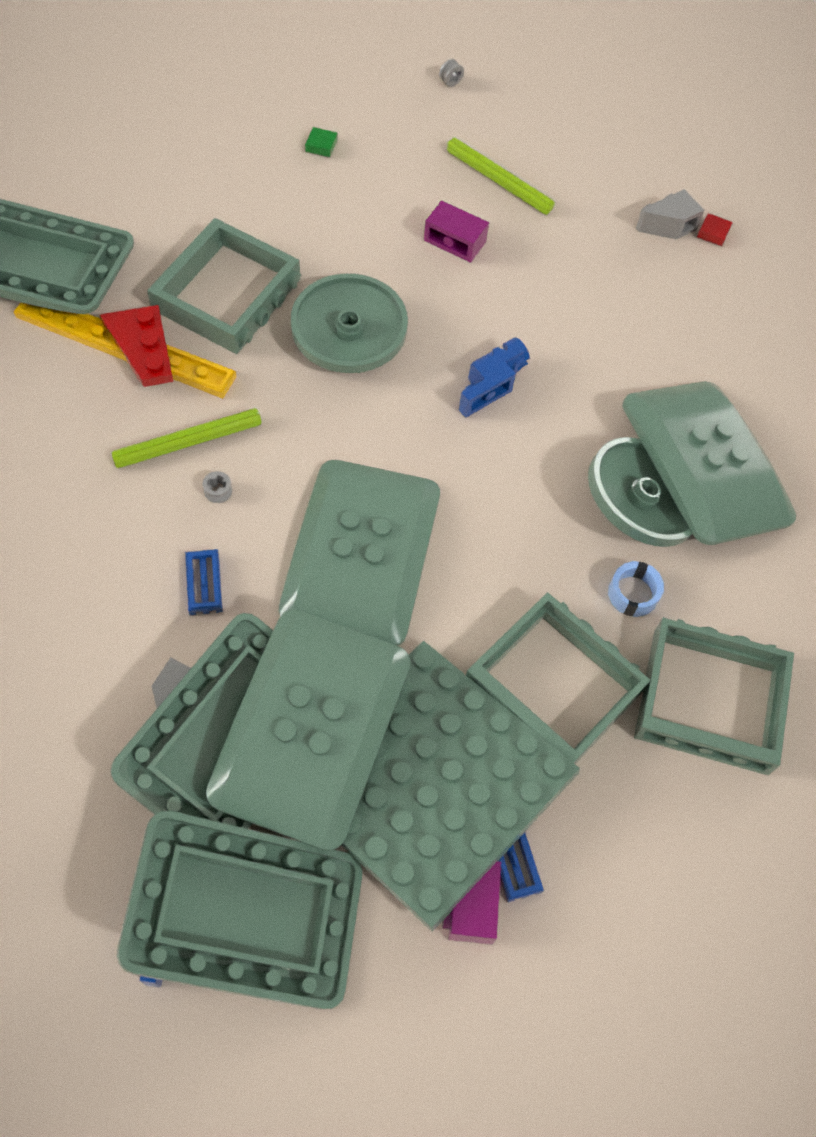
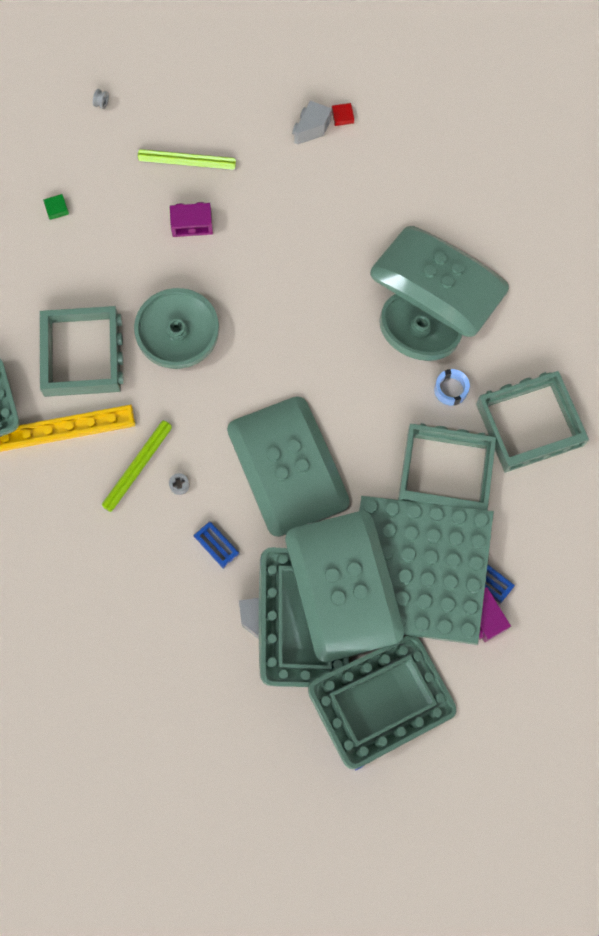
camera: 30 degrees left, 10 degrees up
(142, 341) = (61, 422): red wing -> none
(493, 376) = (284, 305): blue plate -> none

